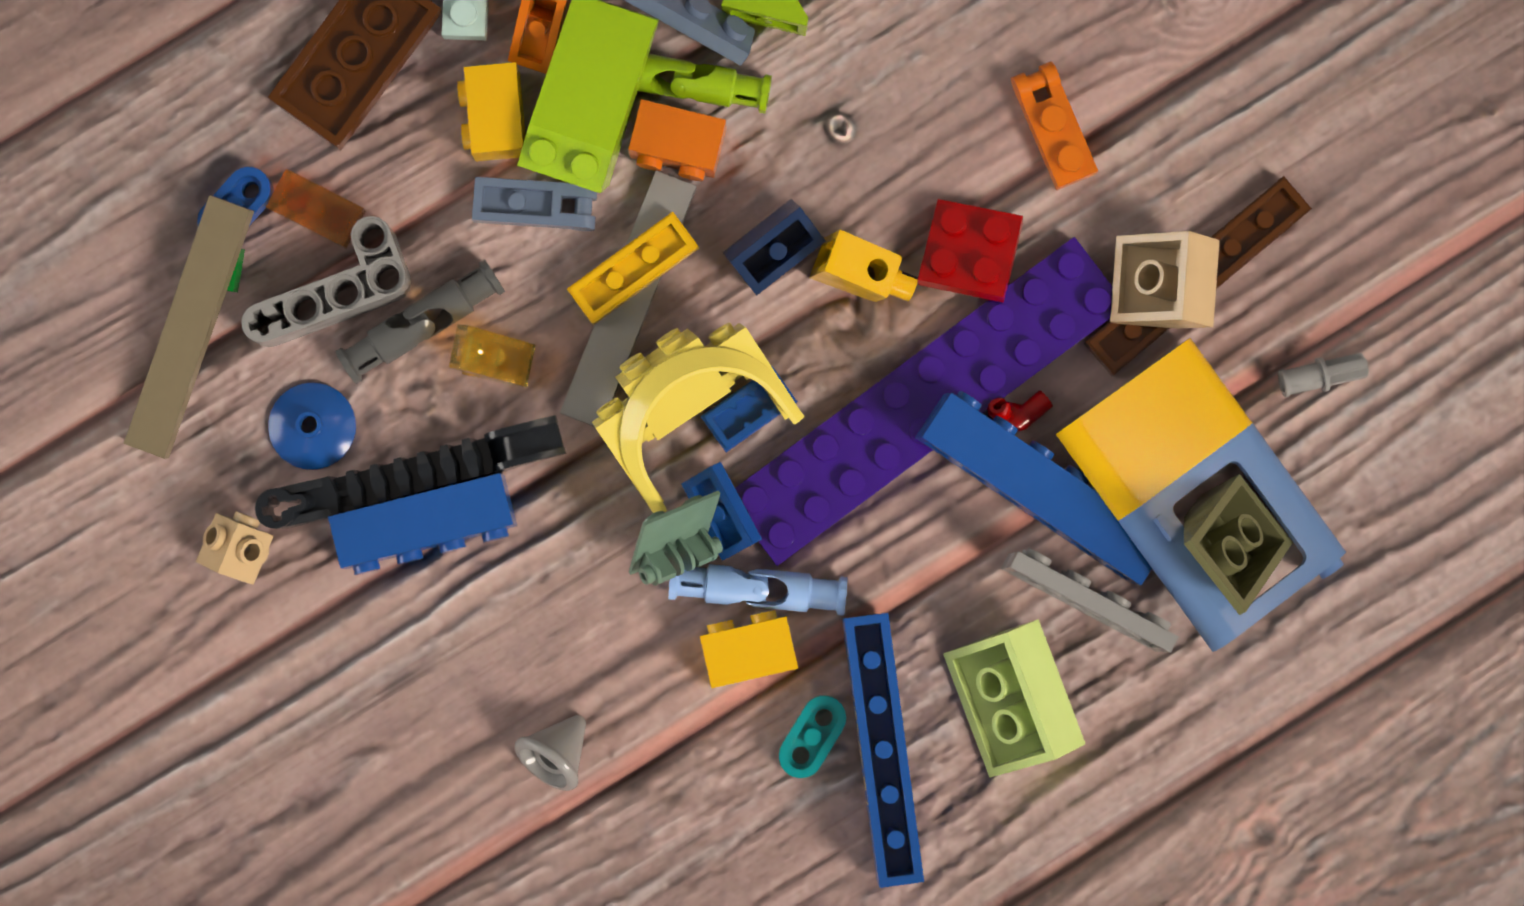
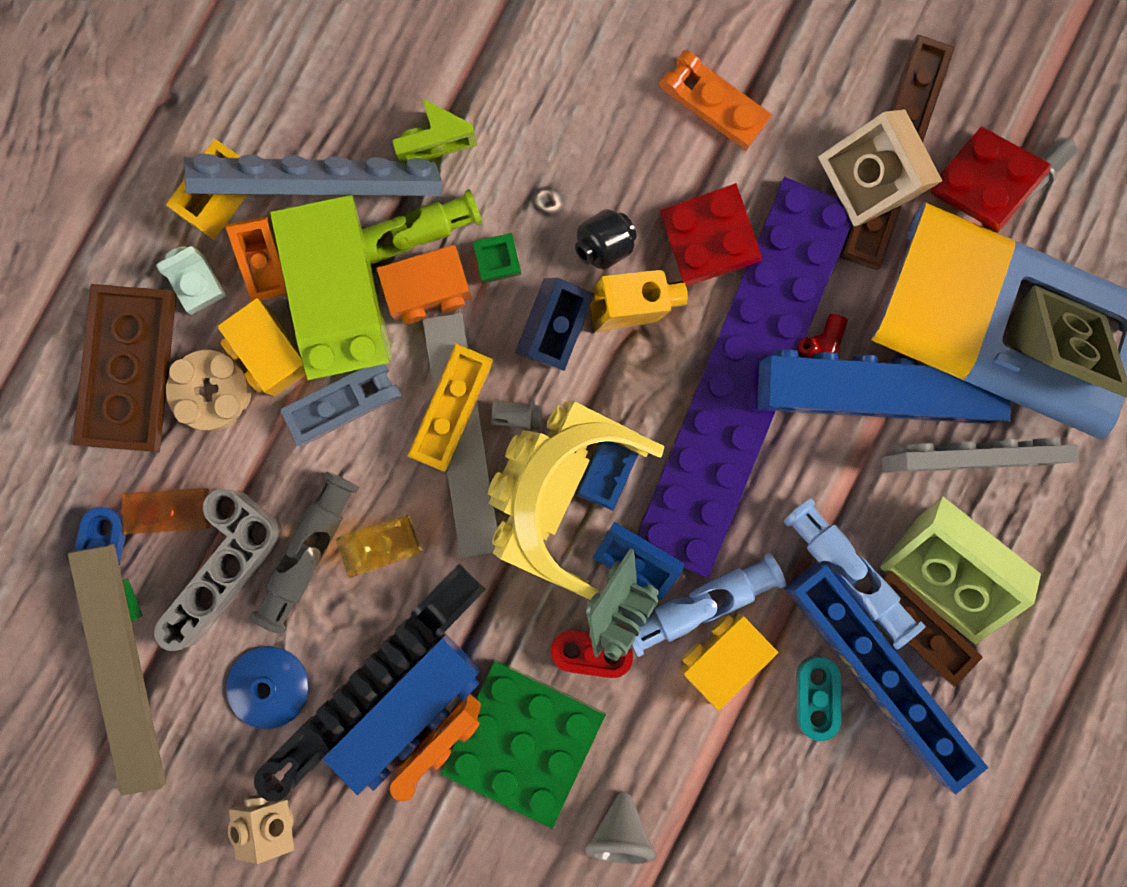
camera: 30 degrees left, 0 degrees up
(408, 96) = (189, 376): none -> tan plate
(433, 569) = (435, 748): none -> orange plate
(516, 616) = (525, 744): none -> green plate
(618, 575) = (585, 661): none -> red plate
(690, 311) = (517, 414): none -> light grey pin
(758, 154) = (497, 258): none -> green plate
(870, 196) = (605, 239): none -> black head
(906, 613) = (834, 549): none -> light blue piece
(946, 730) = (938, 642): none -> reddish brown plate
(1265, 352) = (990, 178): none -> red plate

